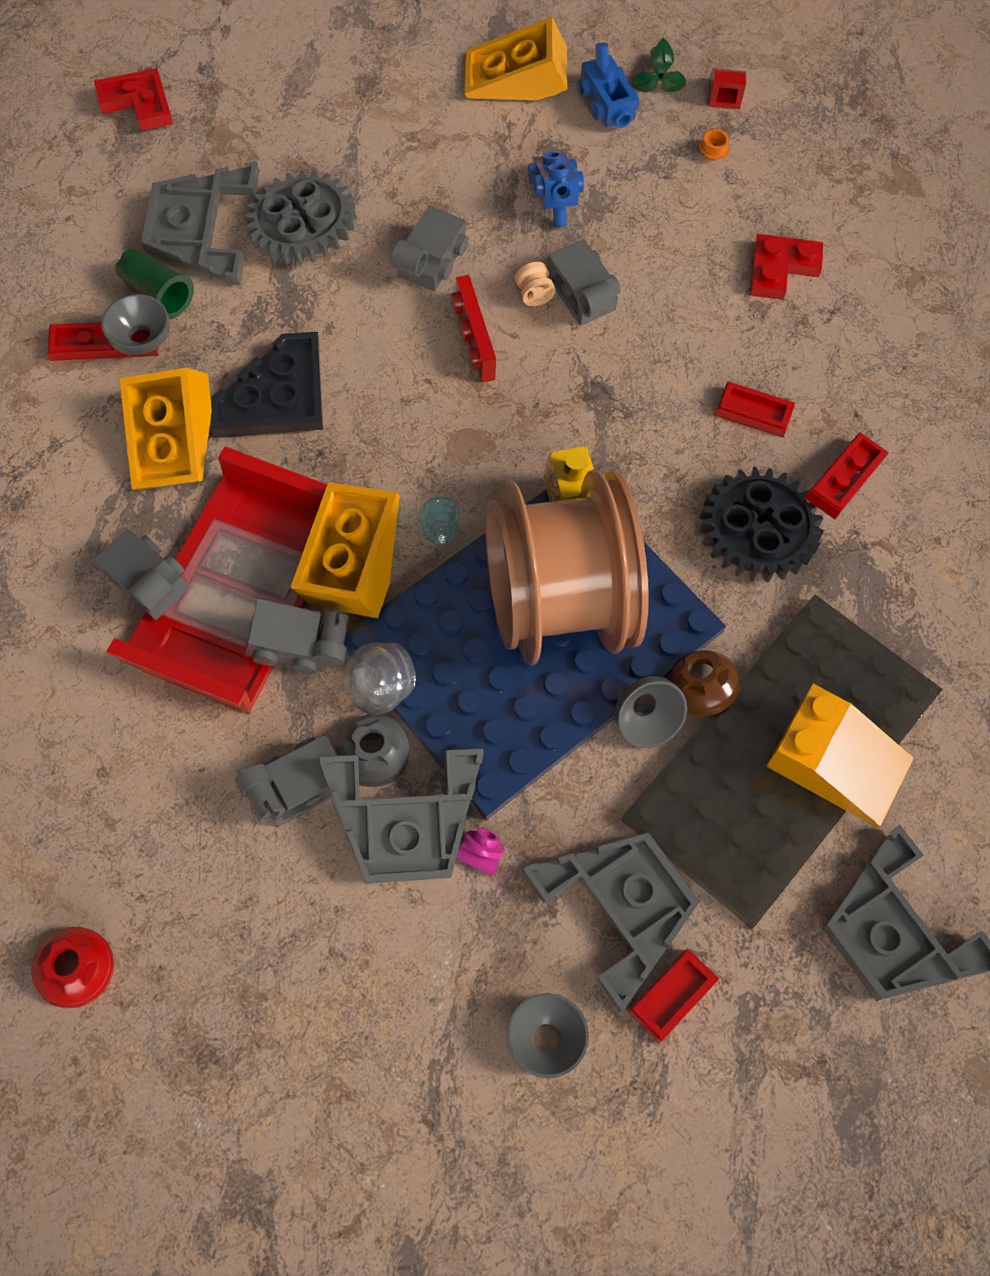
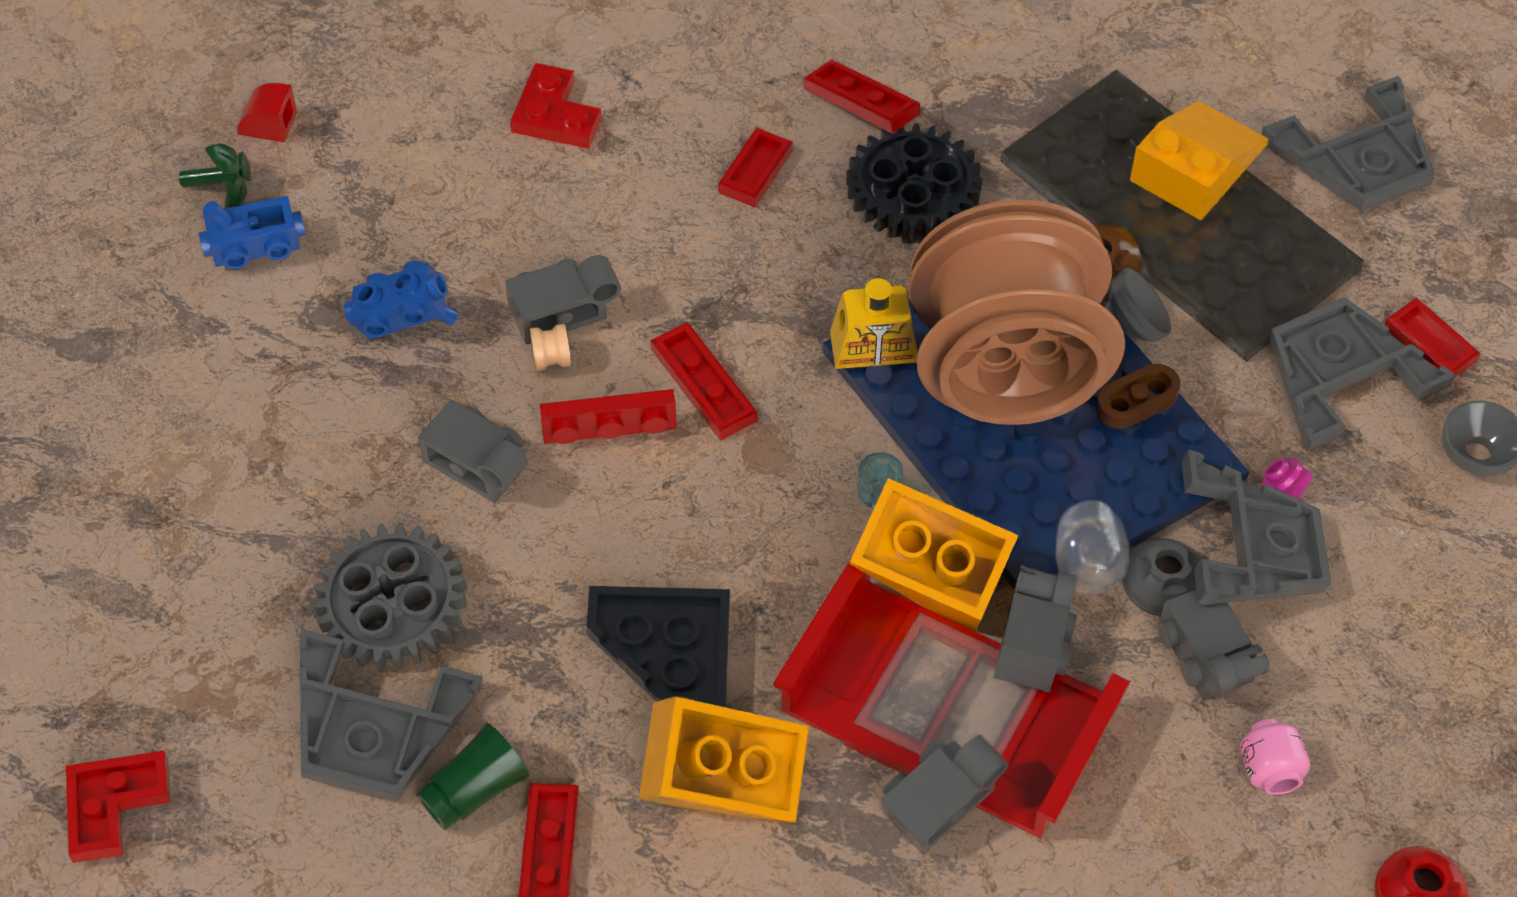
camera: 80 degrees left, 10 degrees down
(135, 314) = (554, 767): dark grey piece -> none
(190, 837) = (1275, 757): none -> bright pink head
(518, 64) = (176, 325): light orange slope -> none
(526, 393) = (704, 381): none -> red tile
(541, 709) = (1134, 396): none -> reddish brown plate
(714, 144) = (360, 140): orange plate -> none

